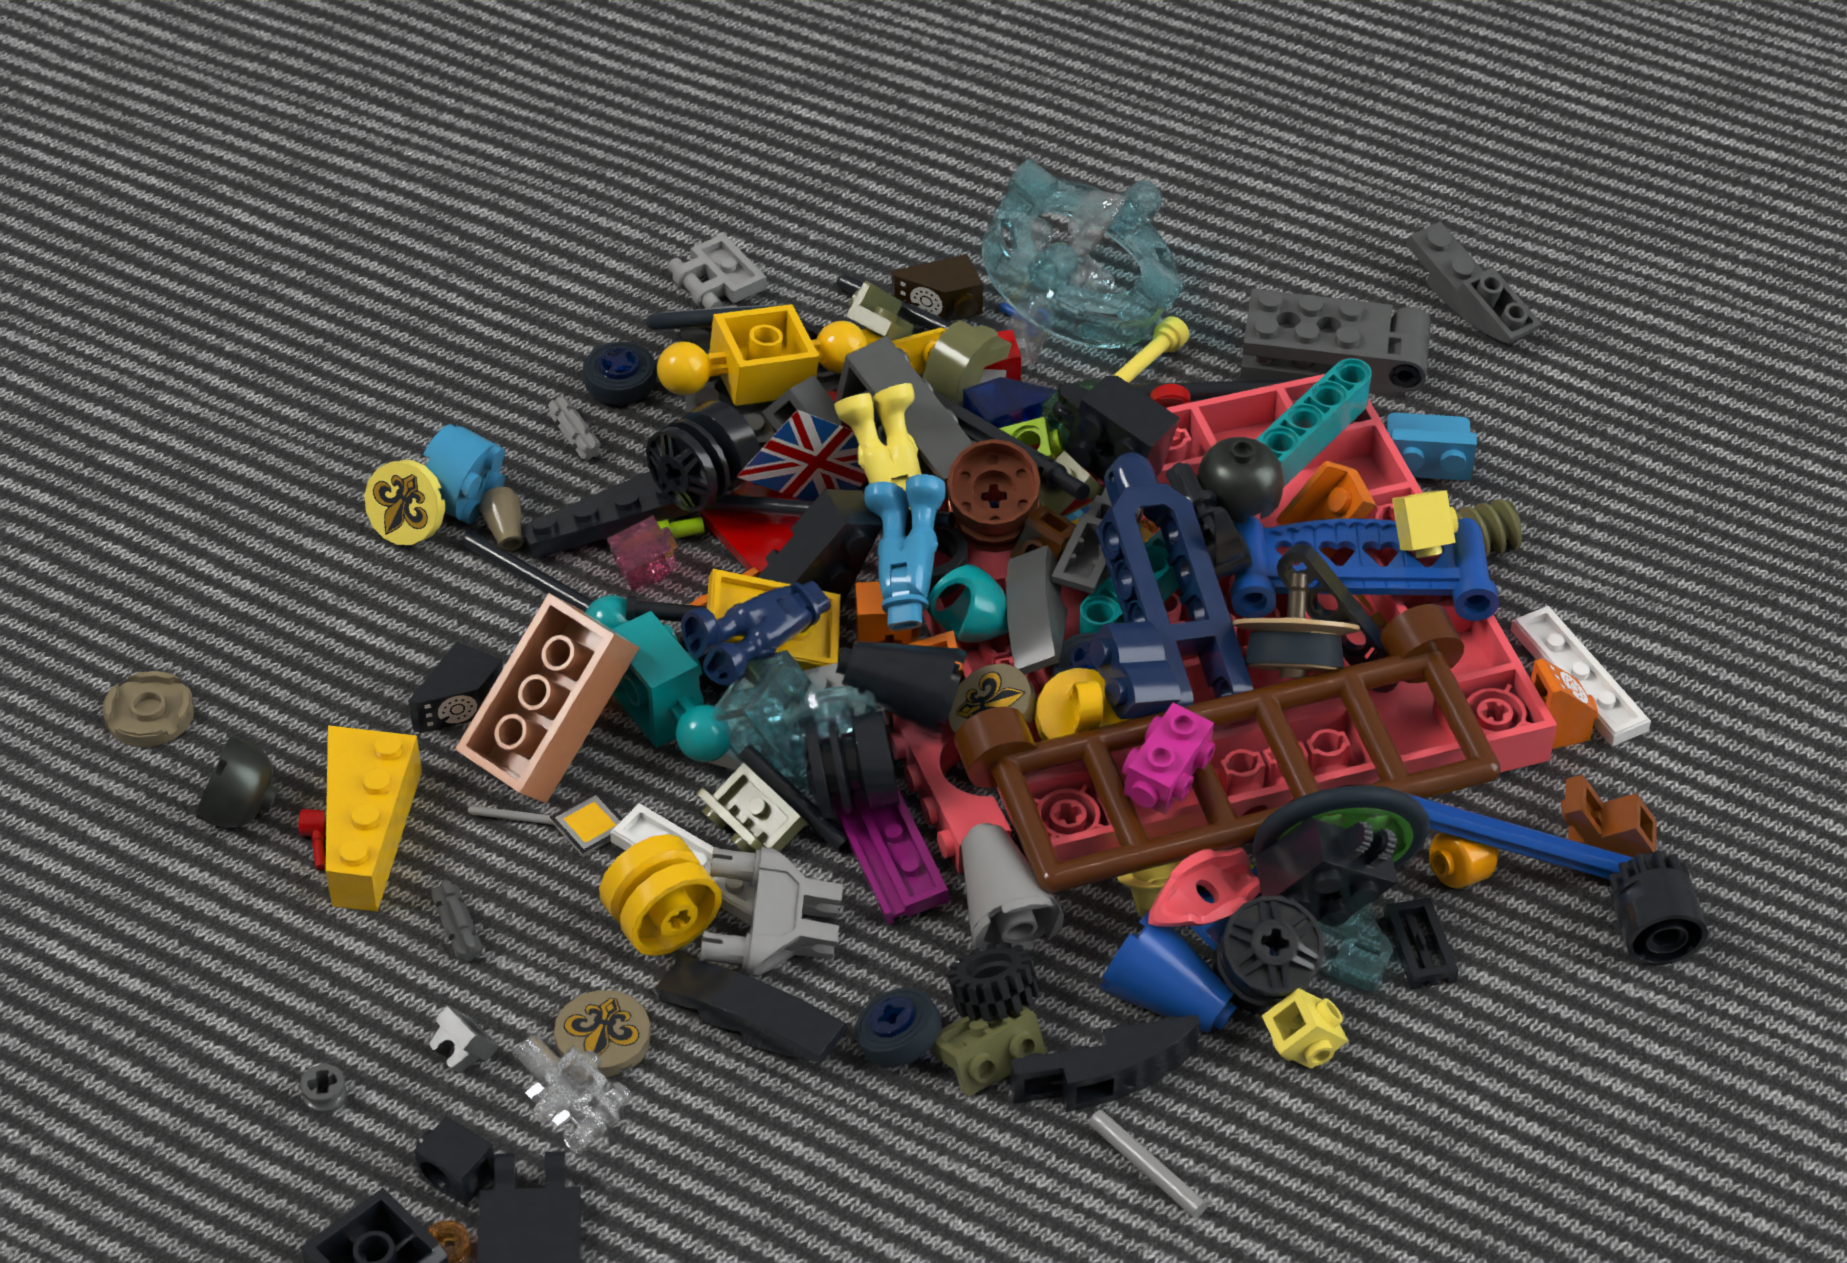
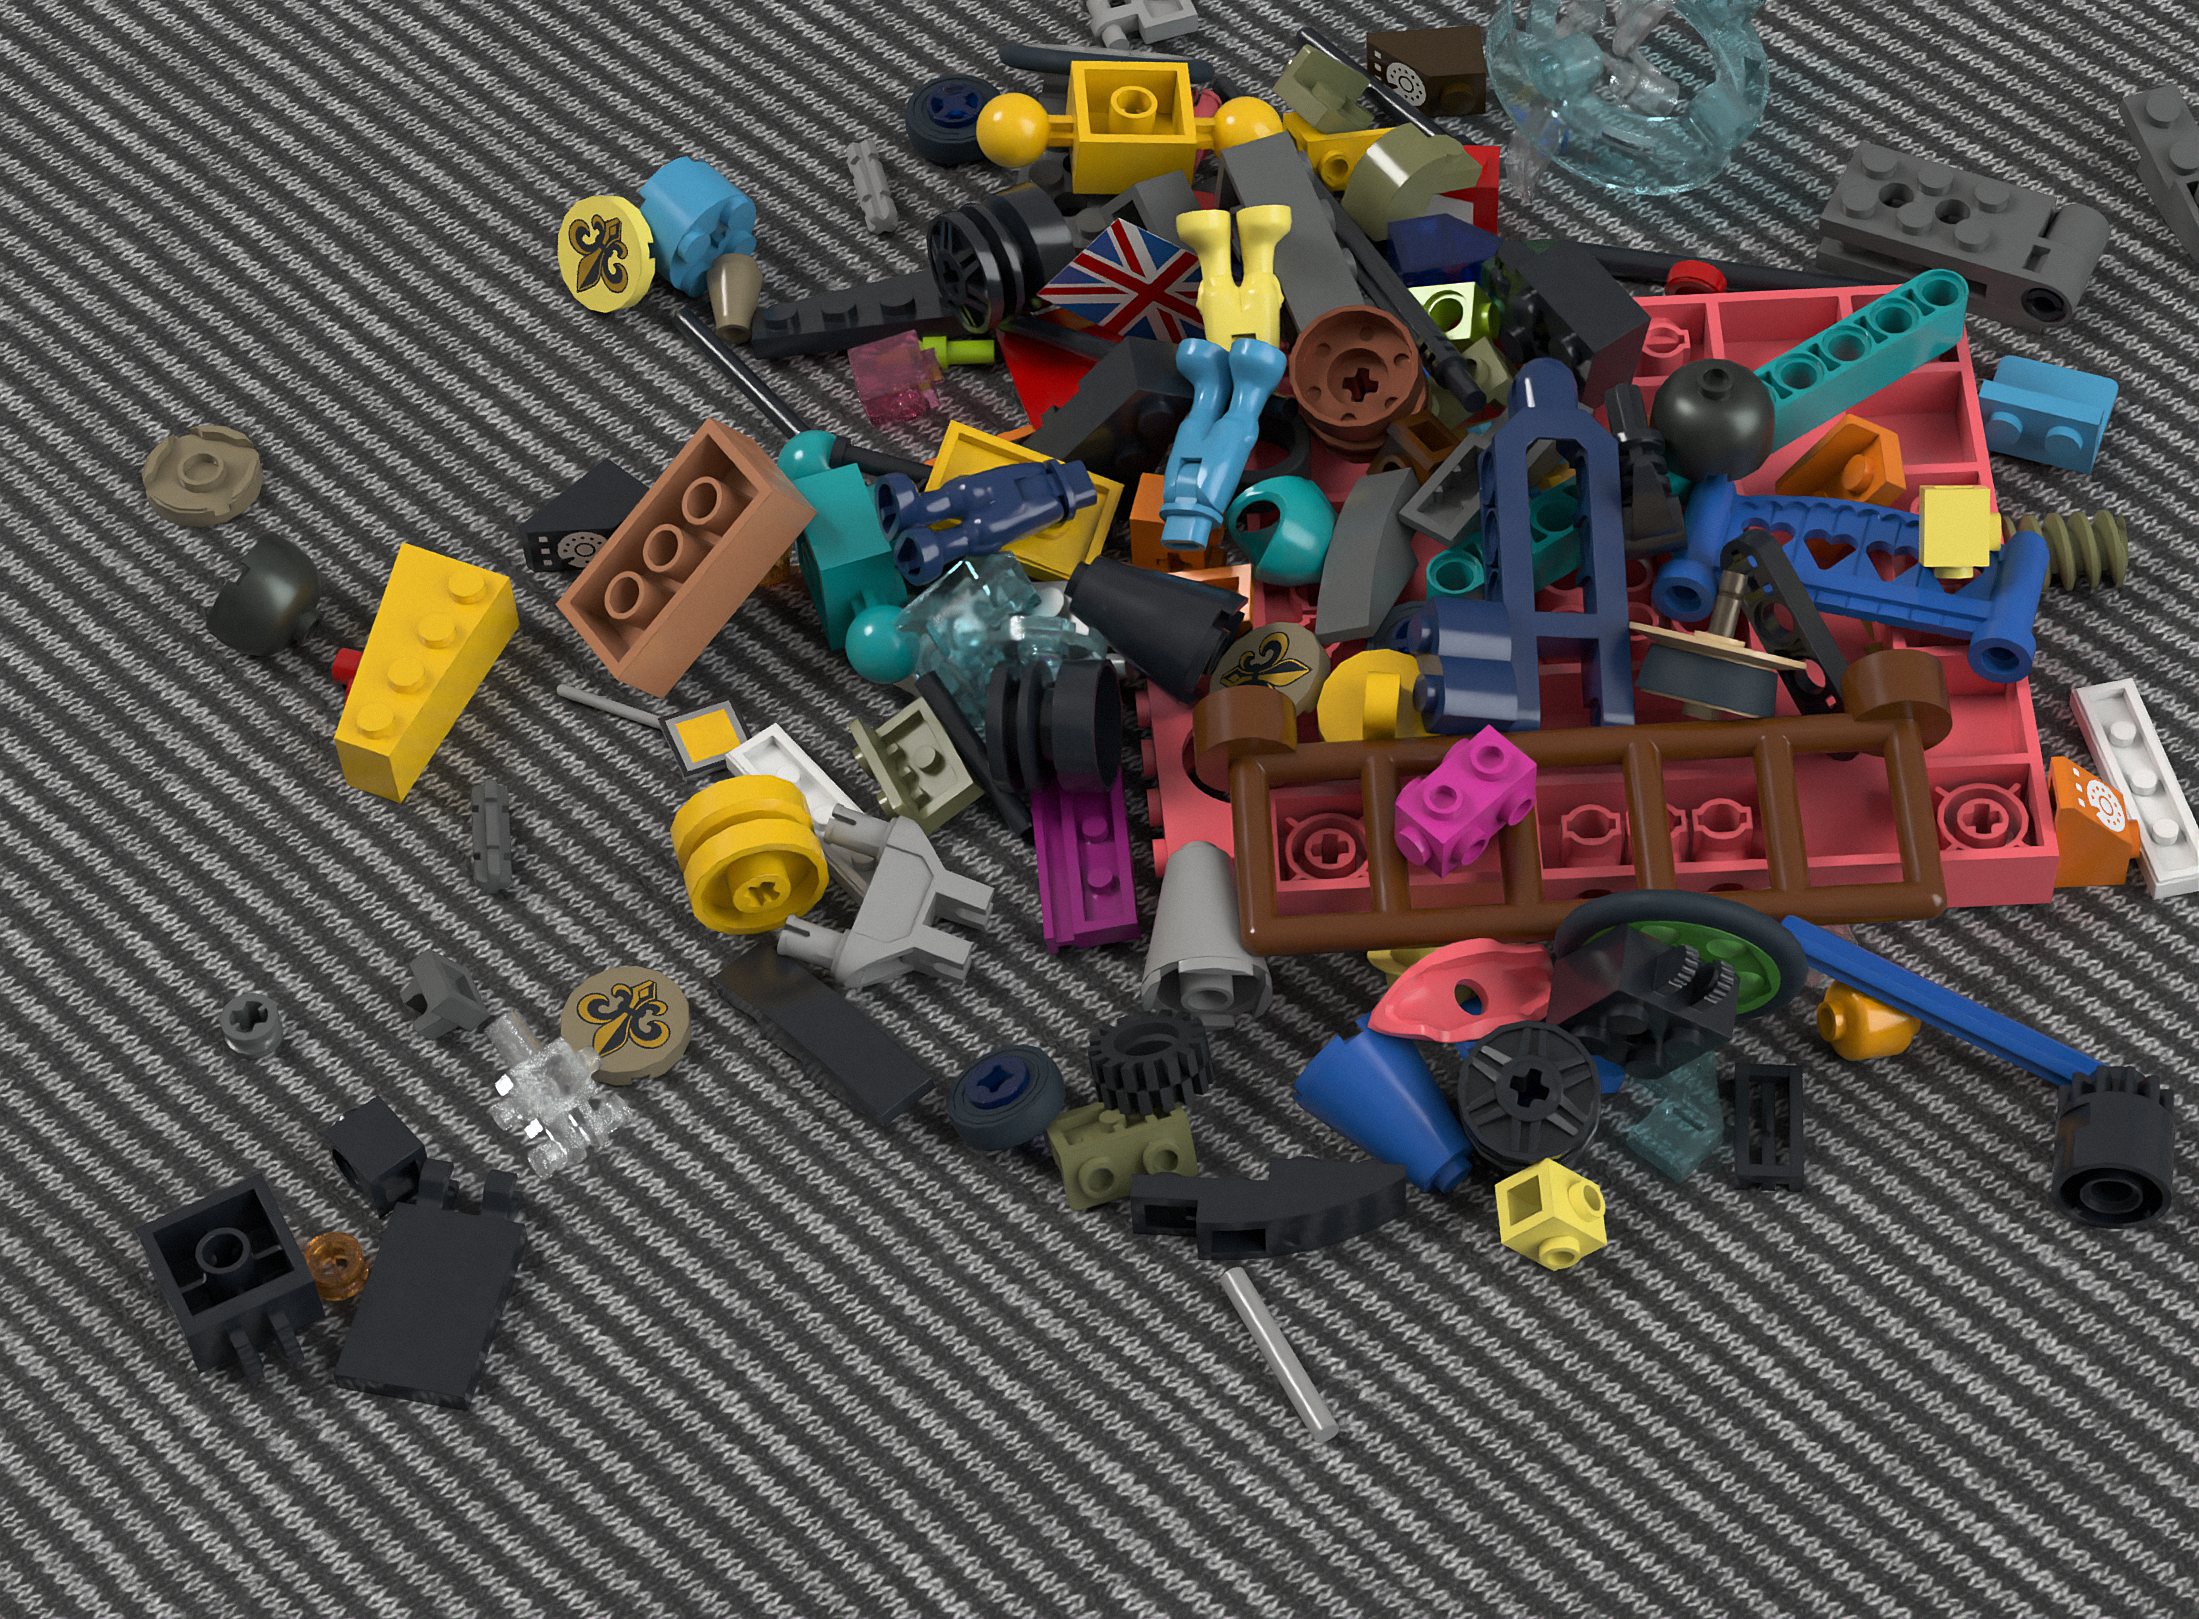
camera: 20 degrees right, 5 degrees up
(1167, 337) = (1727, 191): light yellow piece -> none
(1613, 825) = (2100, 1017): dark orange brick -> none

